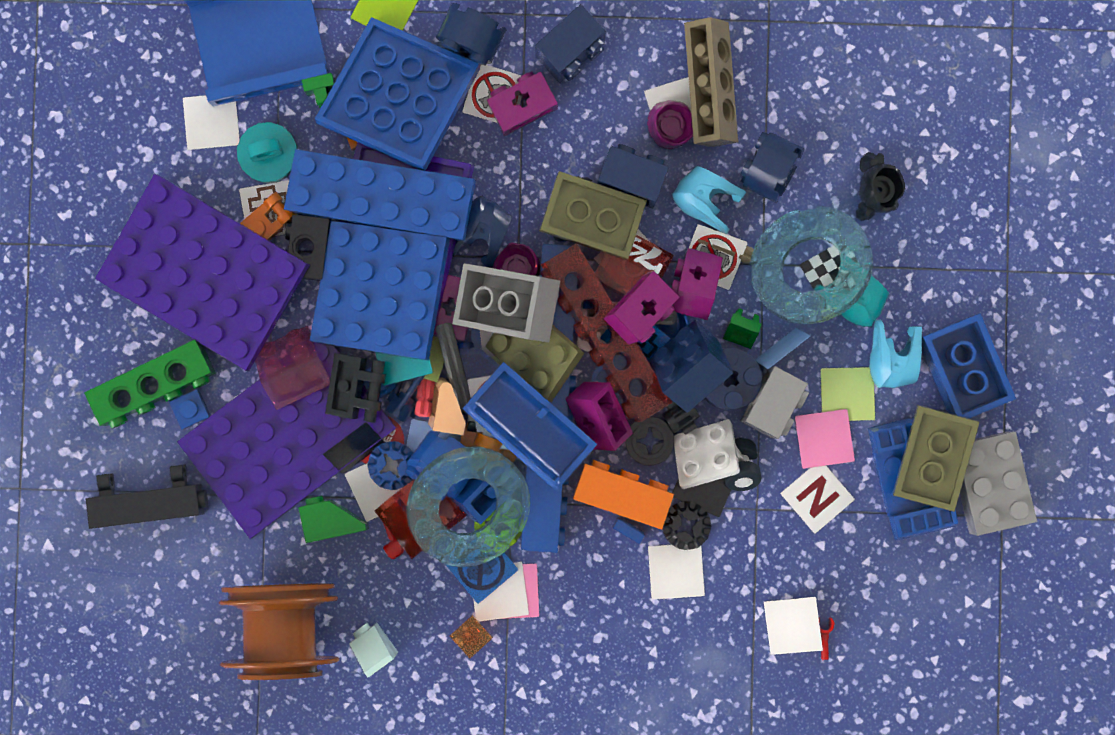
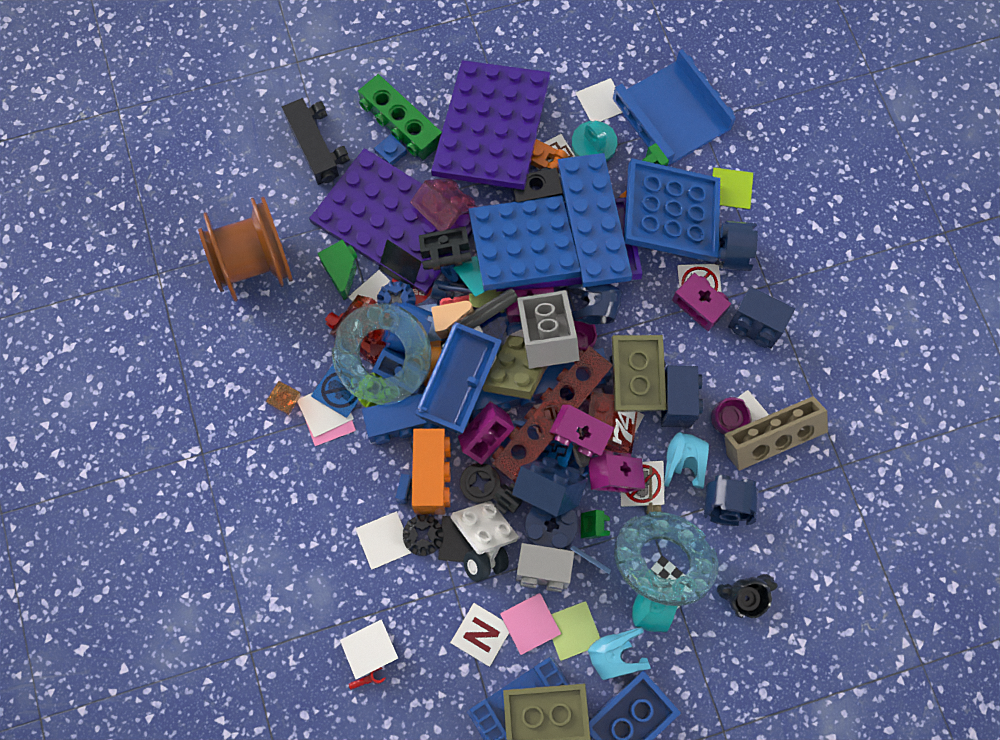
camera: 70 degrees right, 15 degrees down
(372, 648) = (251, 327): light aqua slope -> none

